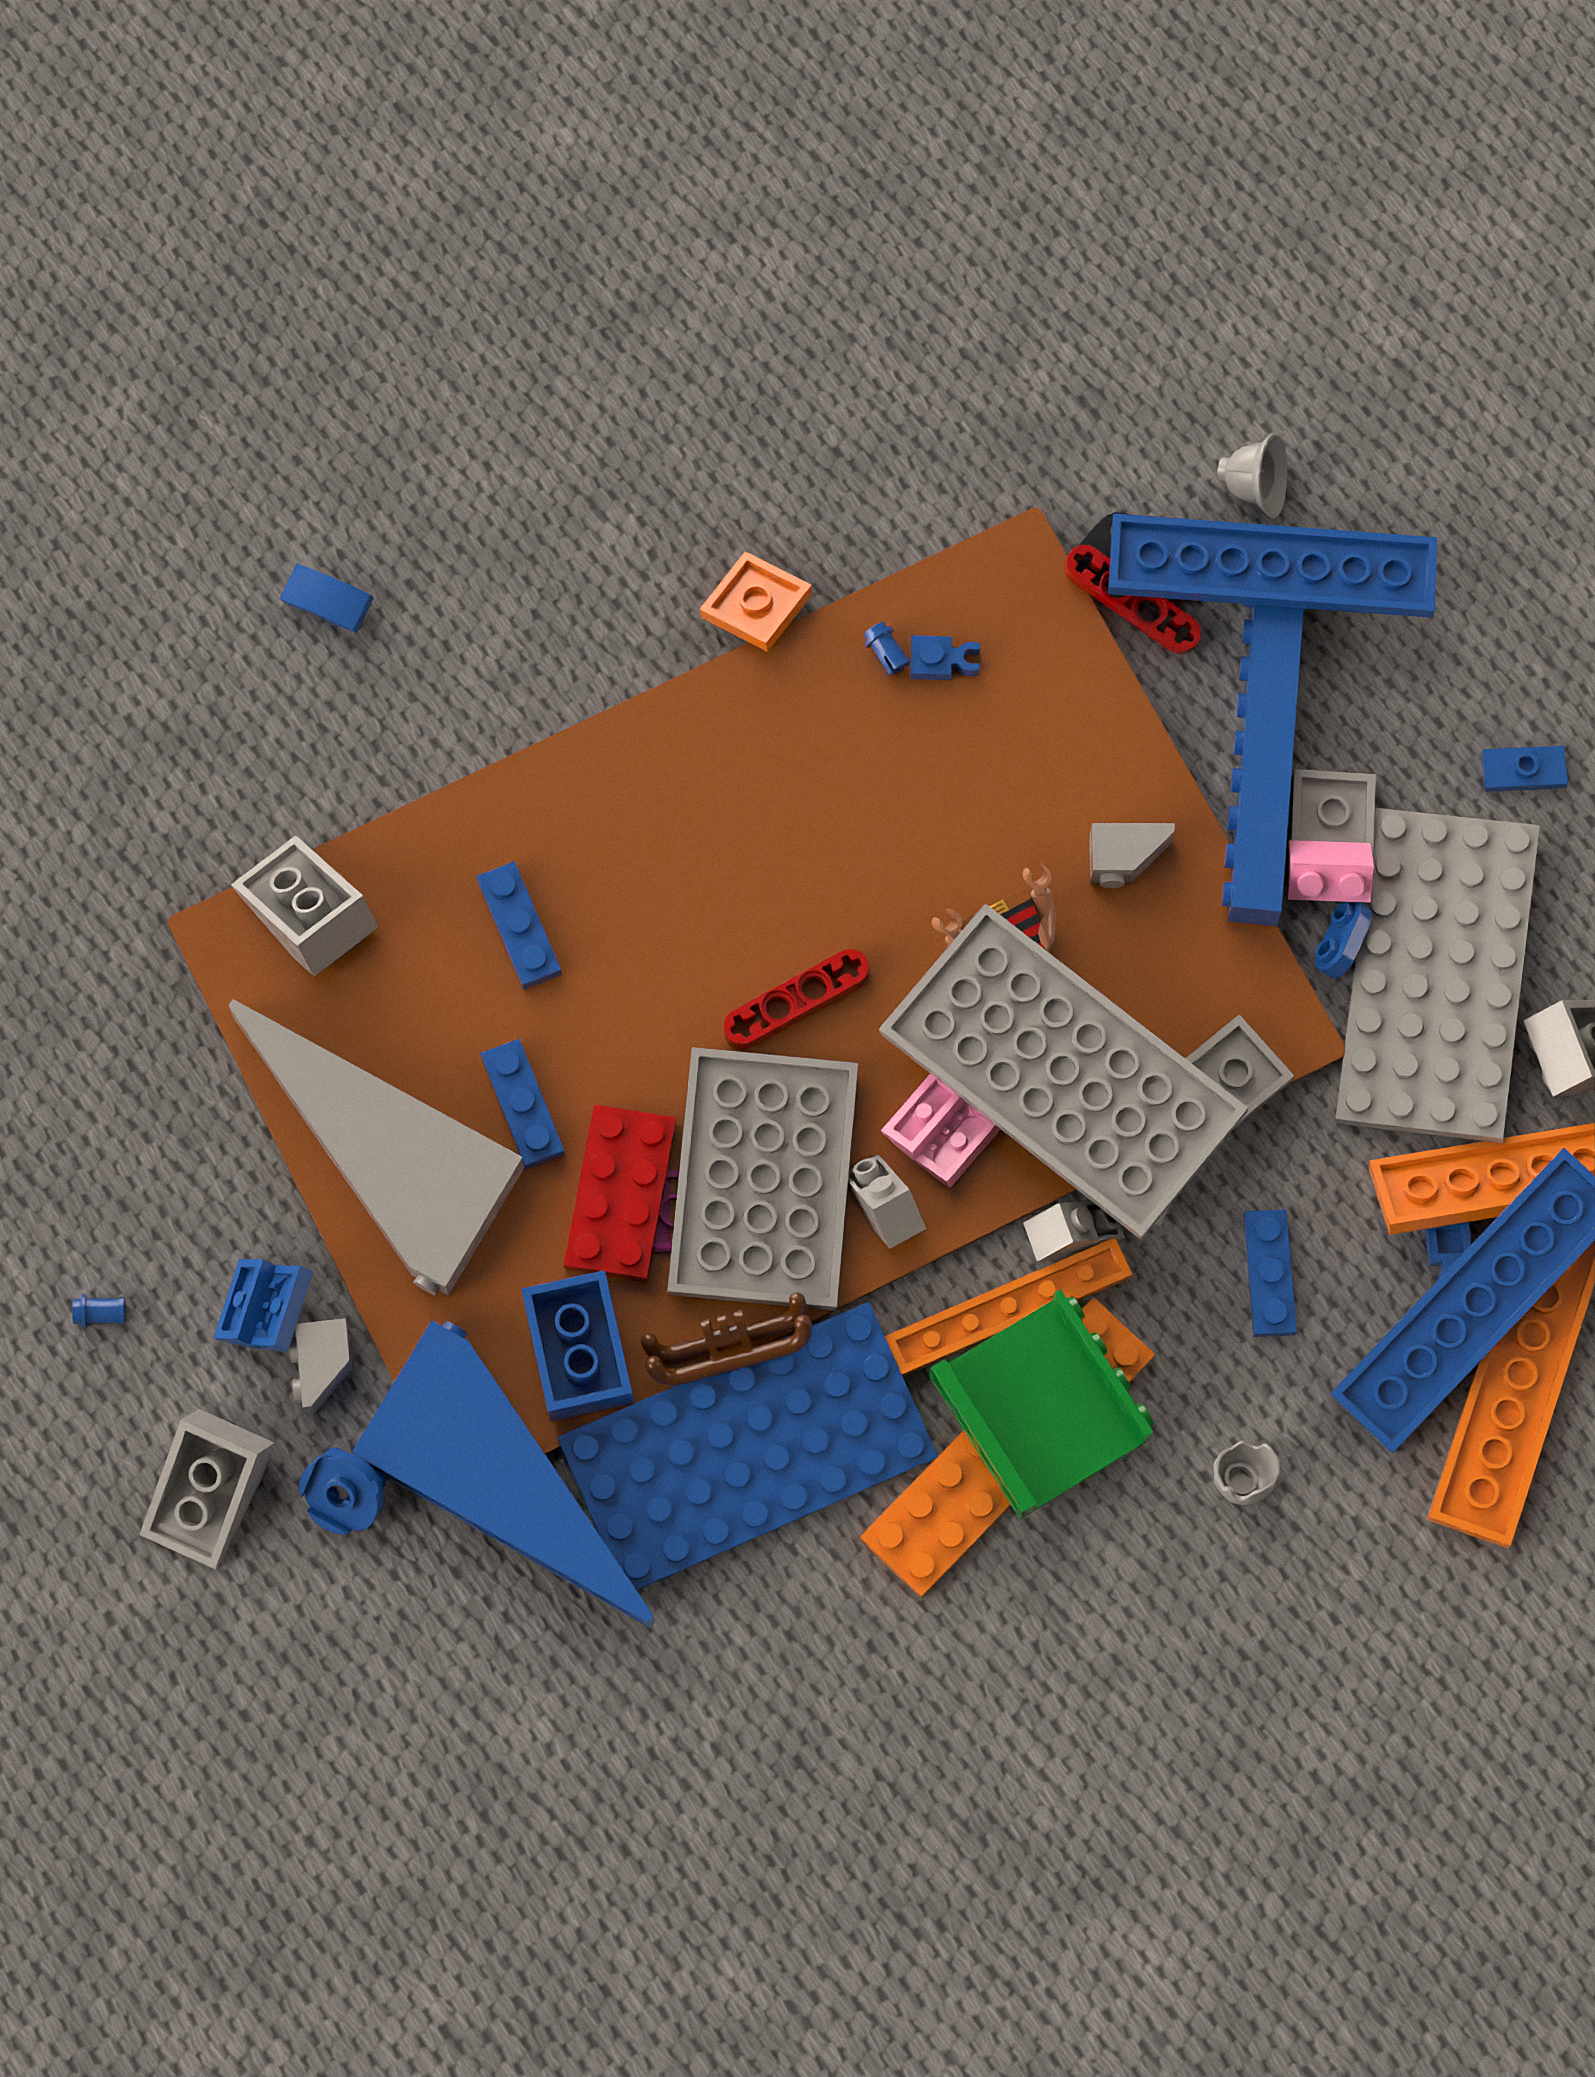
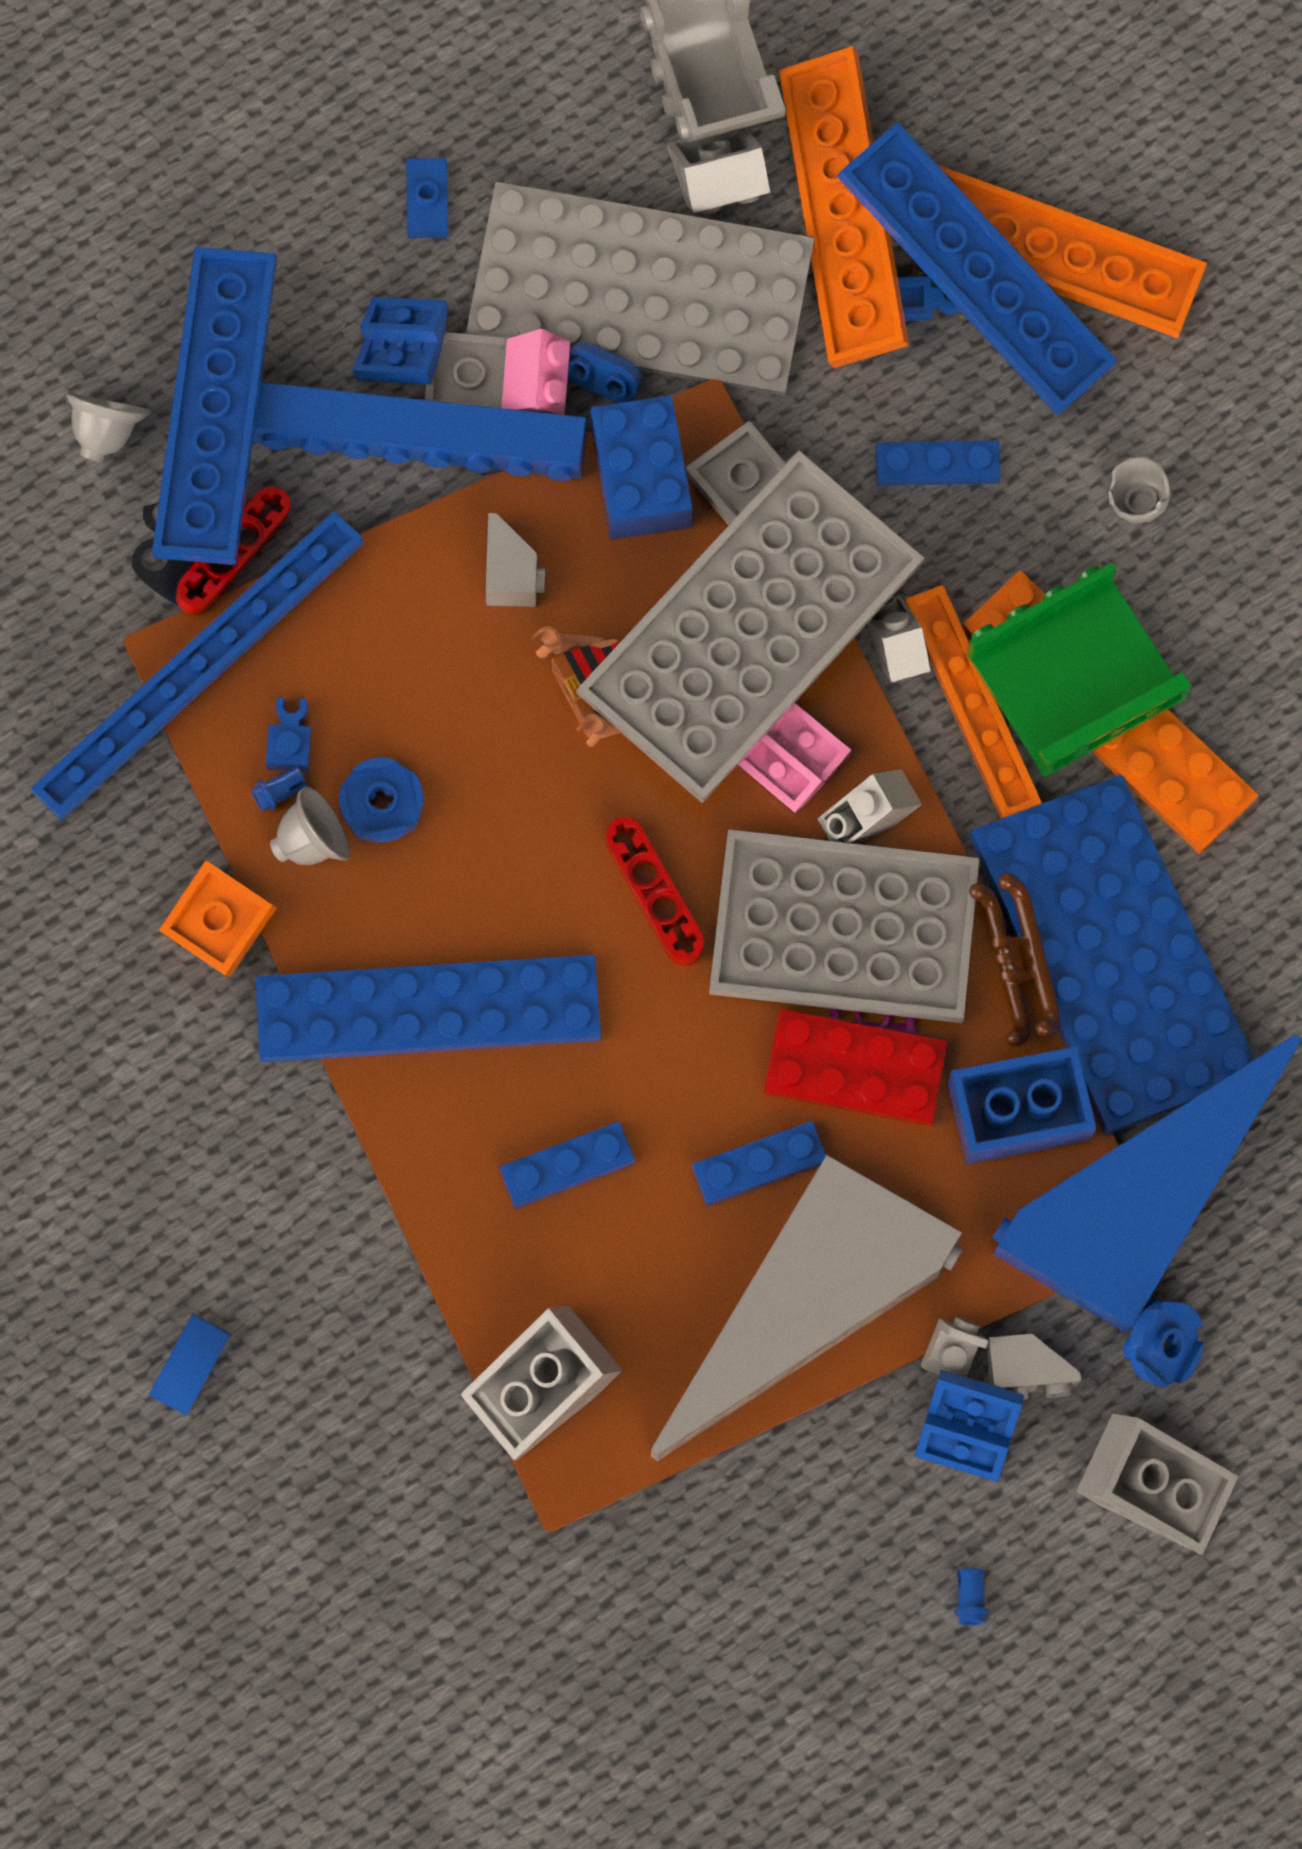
camera: 90 degrees left, 0 degrees up
(339, 1289) = (953, 1347): none -> light grey bracket
(672, 795) = (427, 1008): none -> blue plate
(843, 679) = (310, 832): none -> light grey hat
(891, 723) = (396, 782): none -> blue plate
(1011, 572) = (197, 666): none -> blue plate
(1237, 971) = (641, 467): none -> blue brick
(1363, 746) = (401, 340): none -> blue slope

